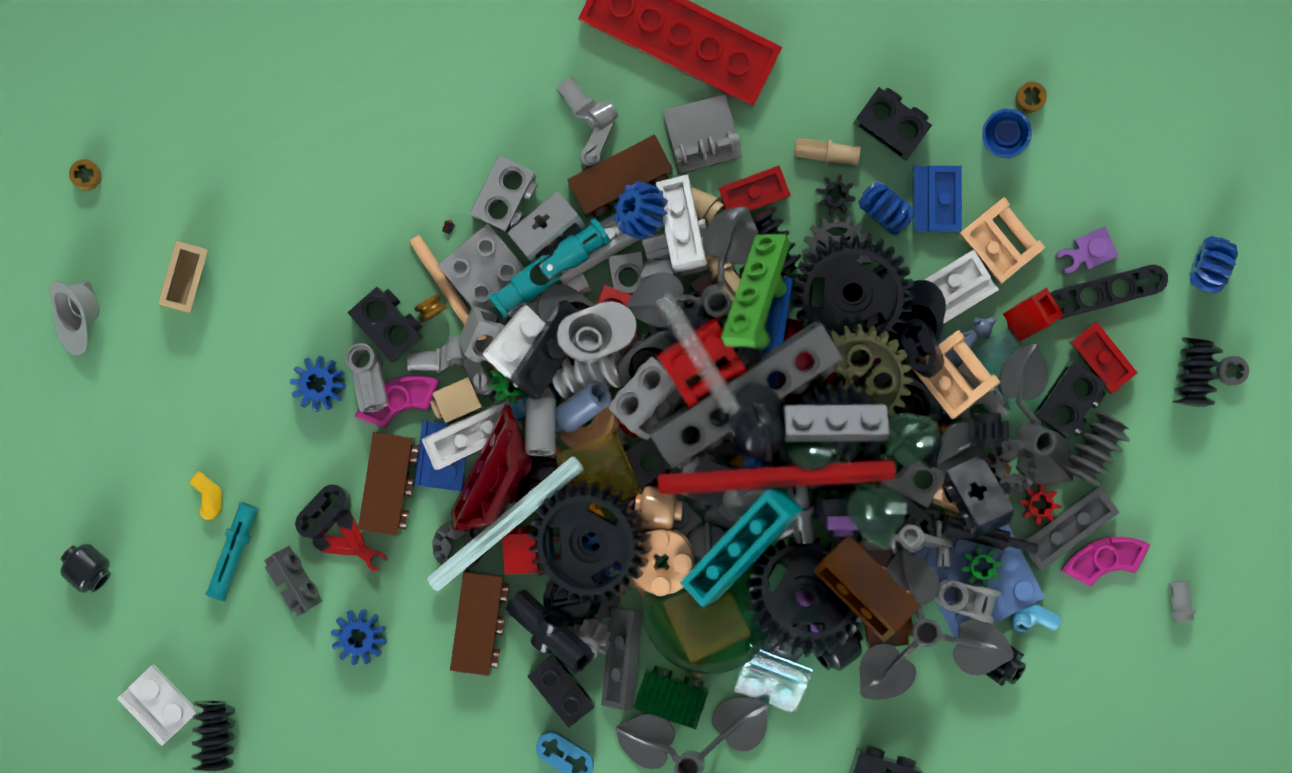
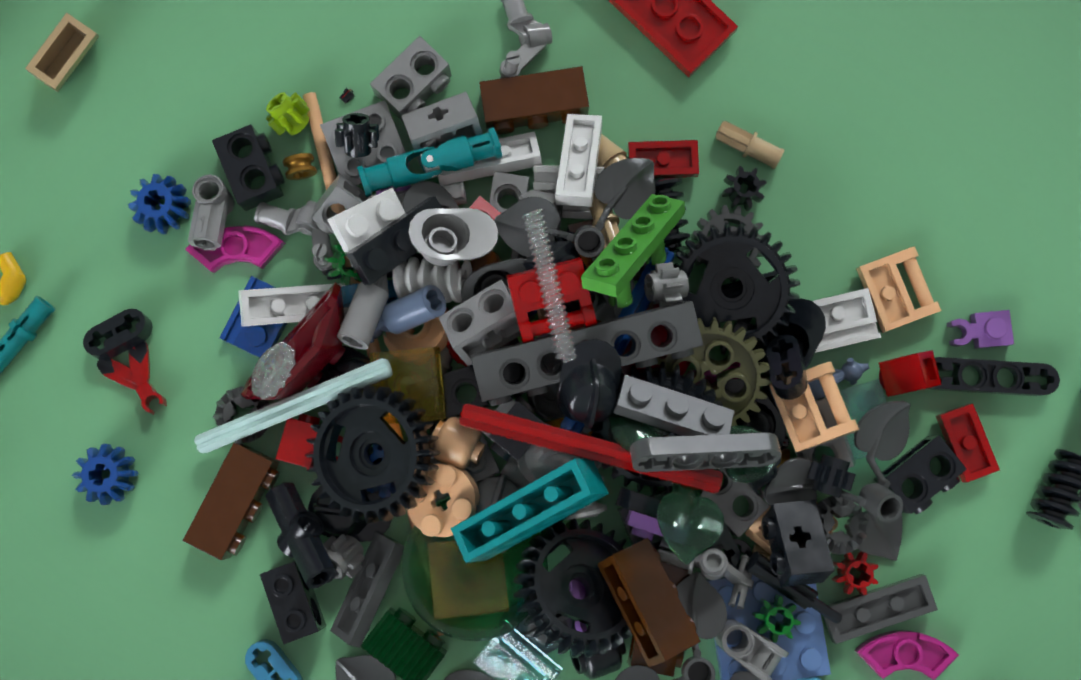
camera: 15 degrees right, 5 degrees down
(301, 592) = (60, 380): dark grey hinge -> none
(388, 484) = (191, 327): reddish brown brick -> none
(403, 264) = (287, 113): none -> lime gear
(456, 401) = (291, 266): tan brick -> none
(477, 267) = (357, 135): none -> black gear
(481, 488) = (272, 370): none -> clear gear
(640, 210) = (542, 132): blue gear -> none
(702, 133) = (630, 86): light grey hinge -> none
(794, 312) = (666, 284): none -> light grey gear
(803, 523) = (603, 508): dark grey pin -> none
(872, 449) = (705, 452): none -> dark grey beam
(886, 207) = (793, 216): blue gear -> none
(887, 130) = (816, 141): black brick -> none
(937, 198) = (846, 226): blue plate -> none
(1007, 133) = (938, 183): blue hair -> none
(1041, 97) = (981, 161): pearl gold bush -> none
(1098, 448) = (935, 534): dark grey piece -> none

